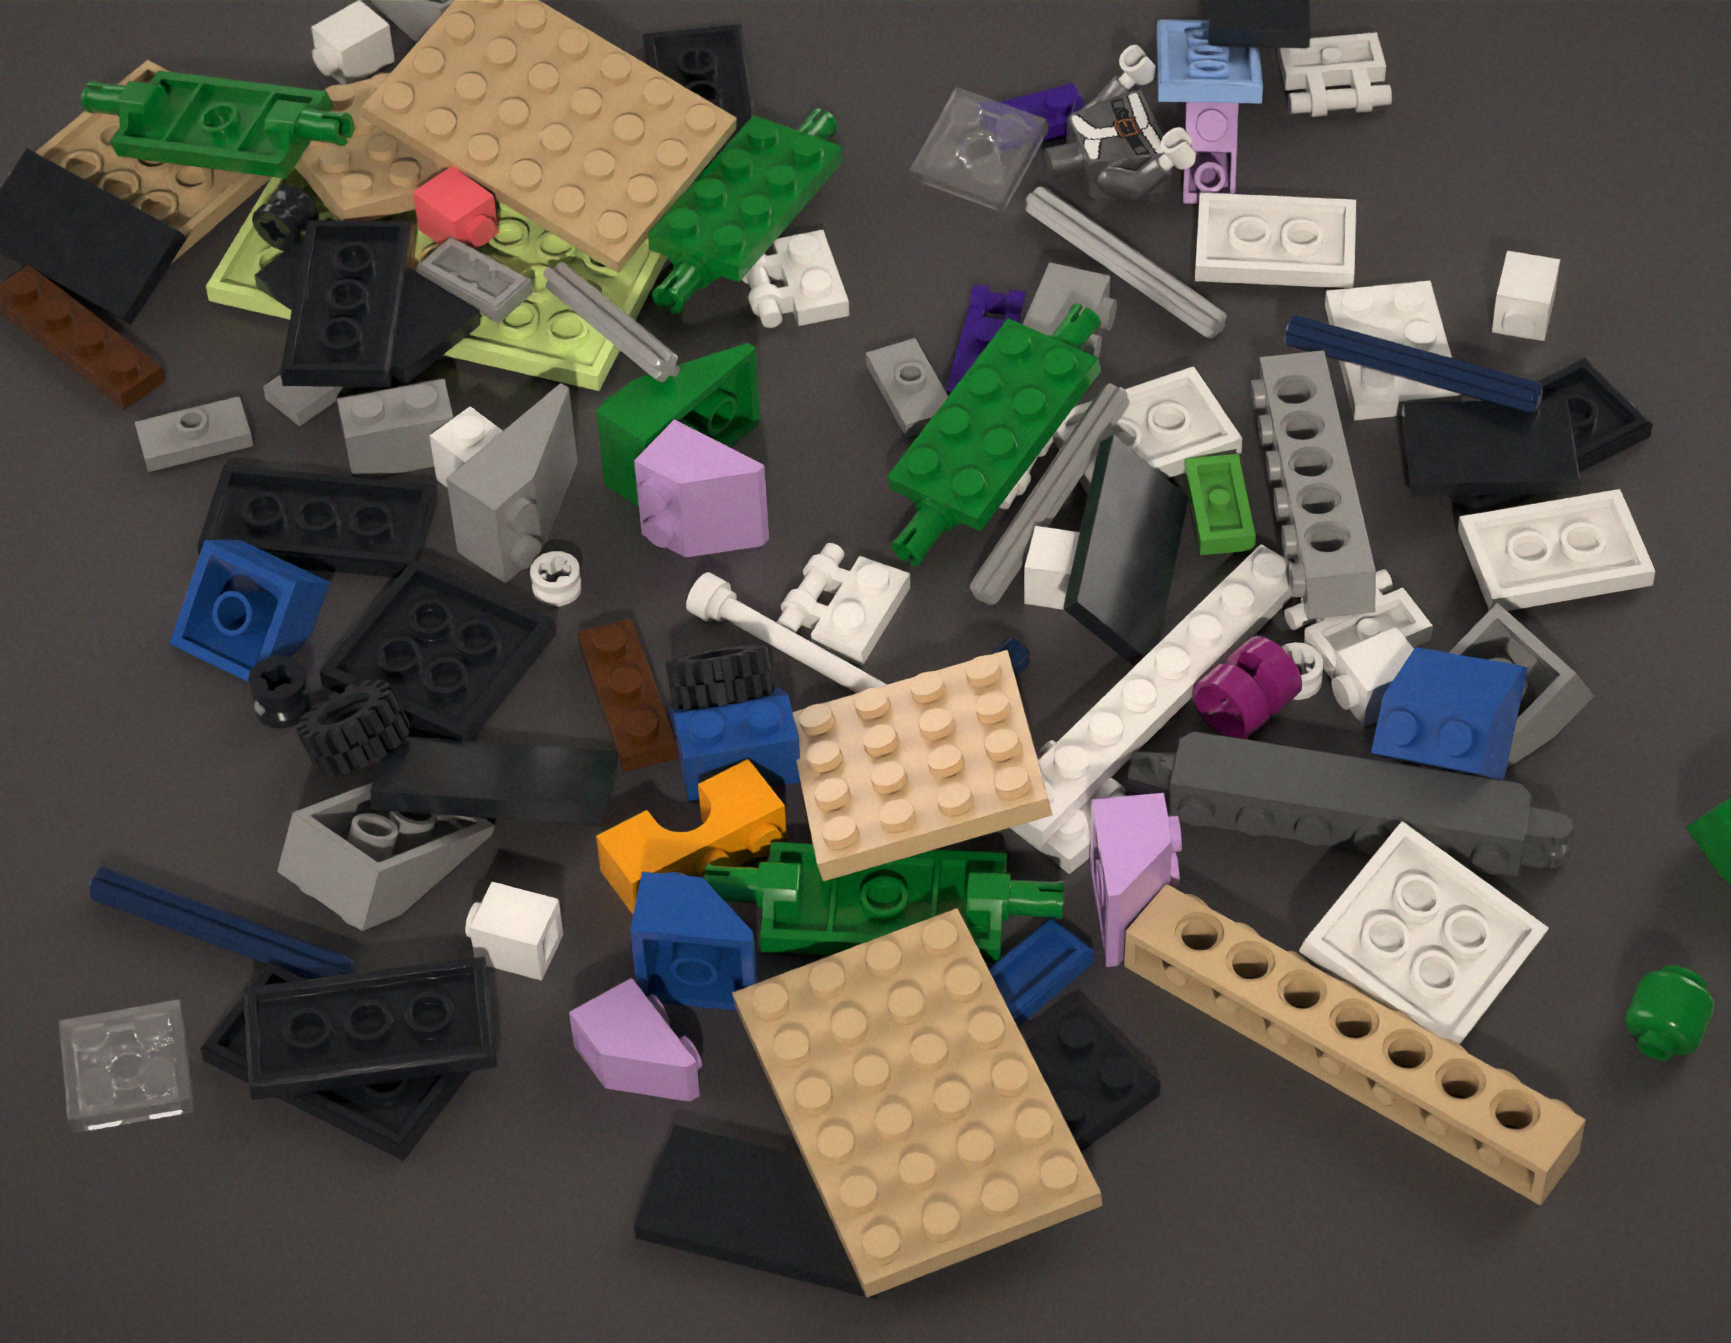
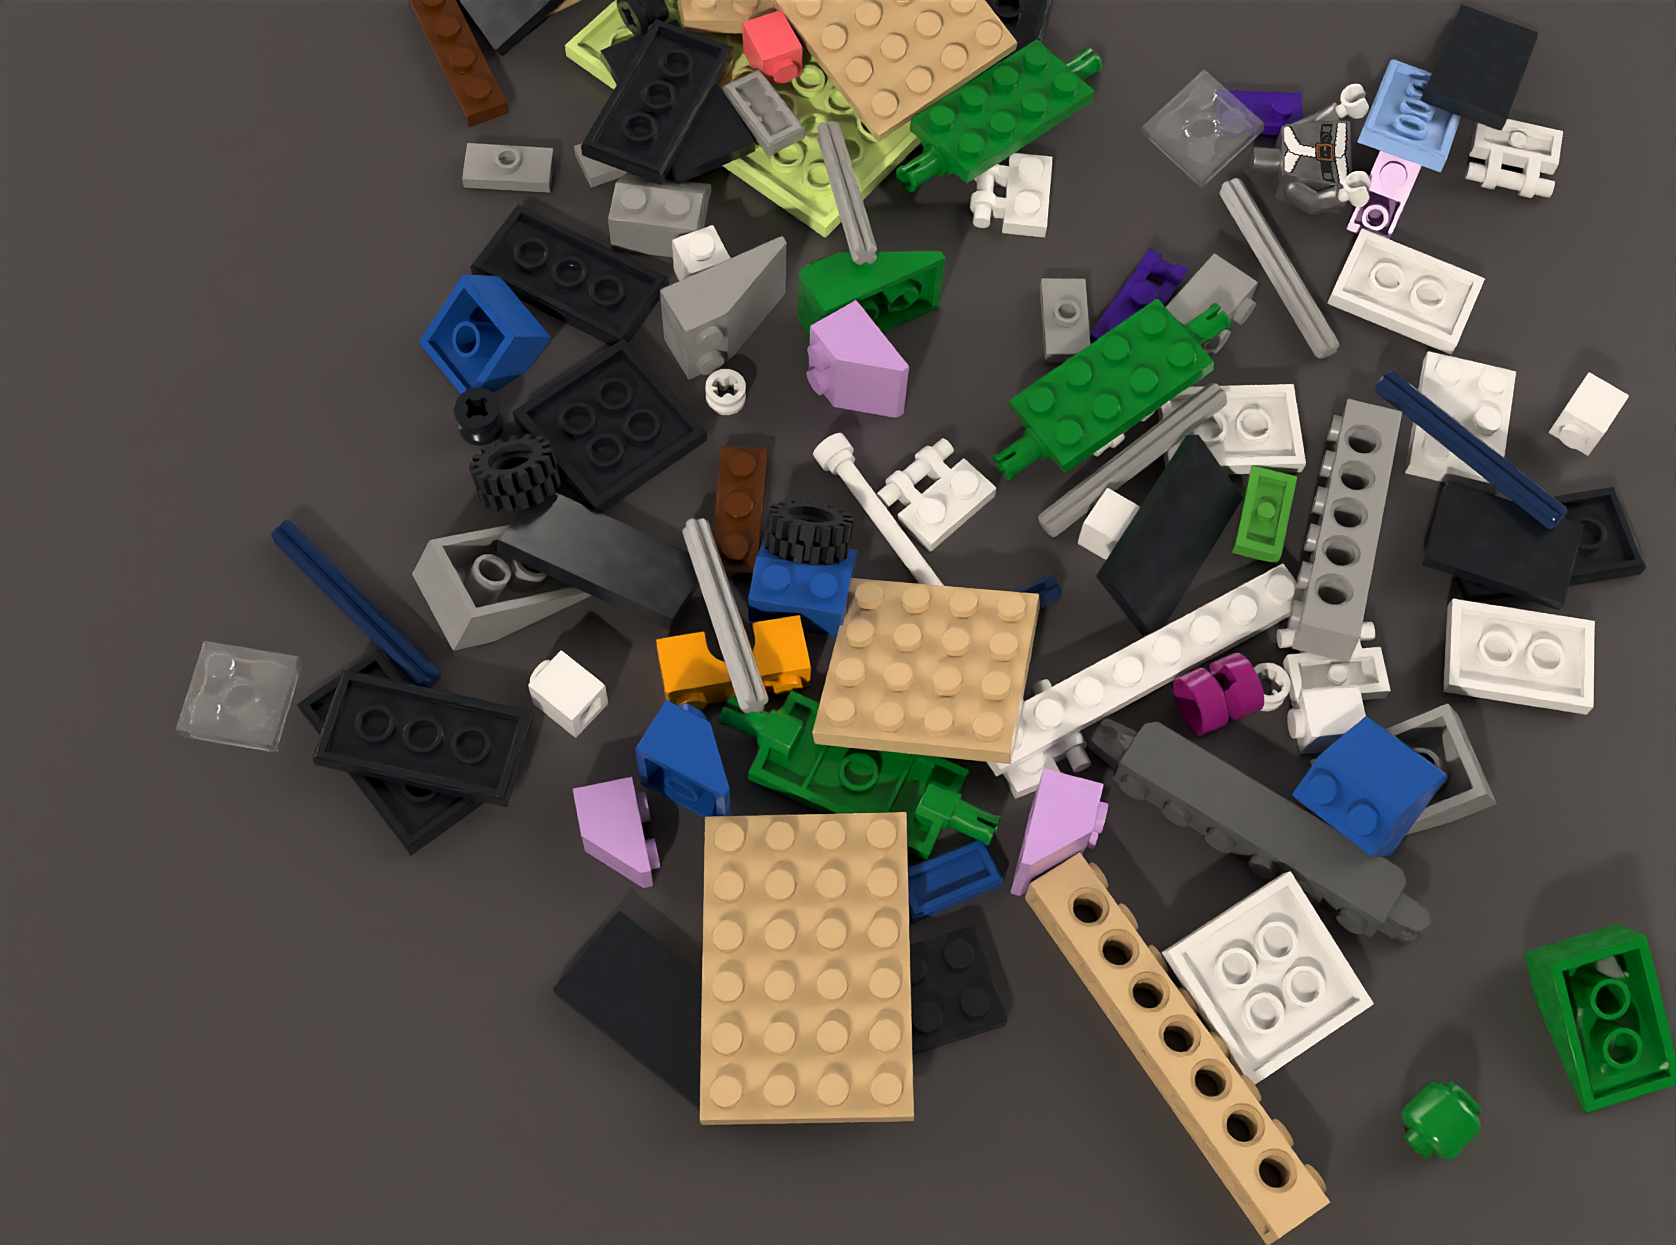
camera: 15 degrees right, 15 degrees up
(664, 786) = (725, 616): none -> light grey axle

